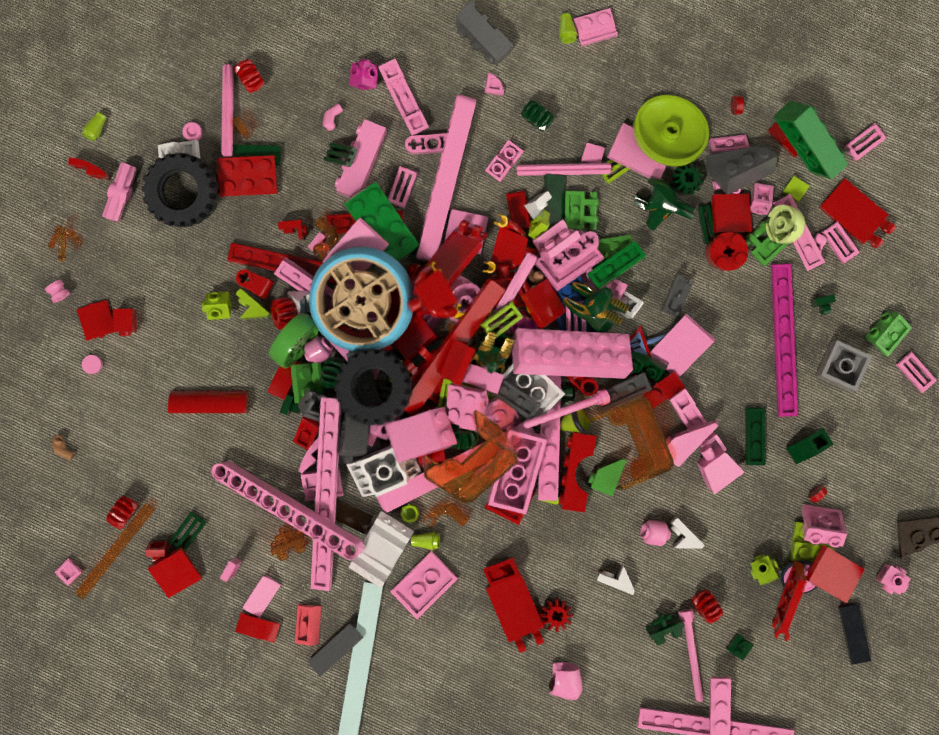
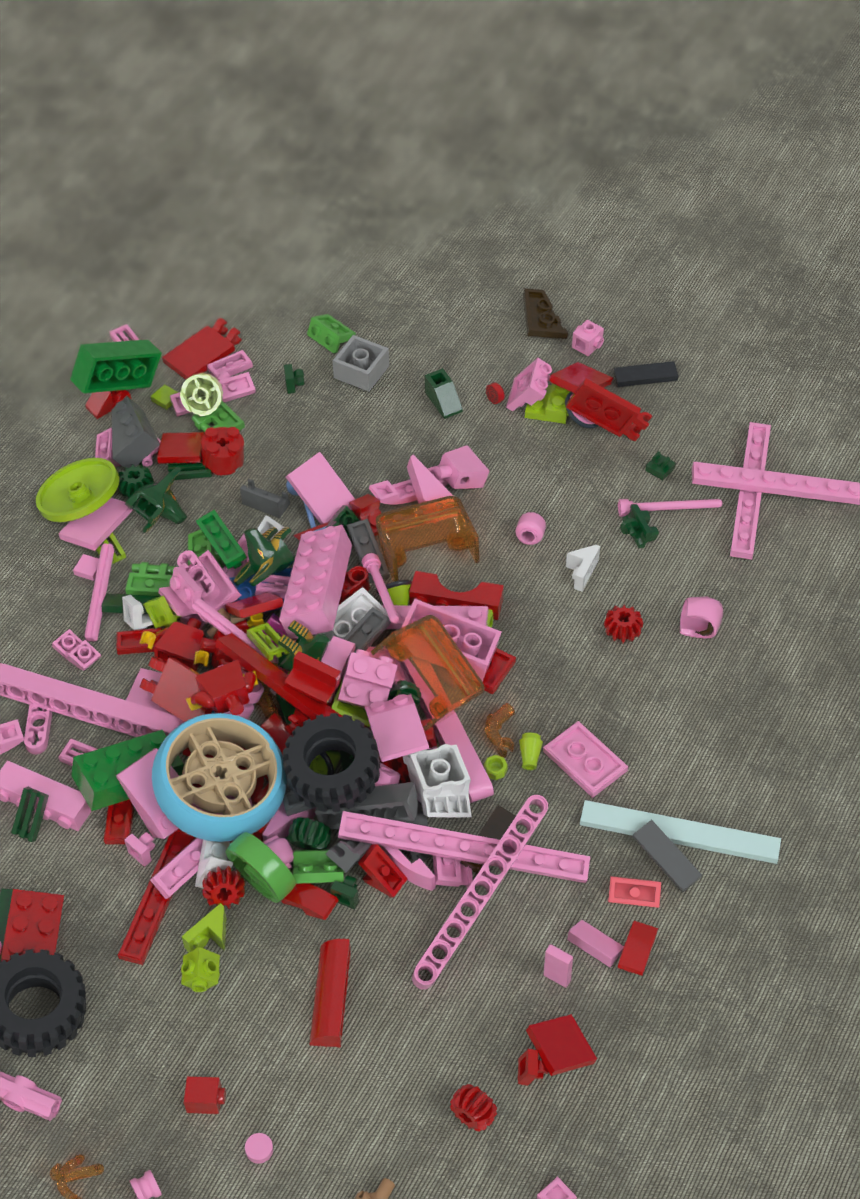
camera: 85 degrees left, 35 degrees down
(96, 320) = (196, 1141): red piece -> none
(114, 551) = (534, 1133): clear orange axle -> none
(197, 518) = (490, 1017): dark green tile -> none
(257, 284) = (176, 924): red piece -> none
(285, 541) = (524, 904): clear orange hips -> none
(289, 227) = (111, 878): red bracket -> none
(331, 235) = (130, 827): clear orange piece -> none
(382, 549) = (534, 775): white slope -> none
(501, 571) = (570, 669): red slope -> none
(516, 611) = (620, 665): red tile -> none
(537, 115) = (30, 609): dark green gear -> none
(607, 477) = (465, 568): bright green slope -> none
(688, 539) = (534, 501): white slope -> none
(707, 606) = (614, 484): red gear -> none
(737, 105) = (63, 437): red tile -> none
(755, 436) = (428, 442): dark green tile -> none
(761, 199) = (170, 420): bright pink bracket -> none
(770, 574) = (575, 435): lime brick -> none
(784, 340) = (327, 414): dark pink tile -> none
(913, 380) = (375, 317): bright pink tile -> none

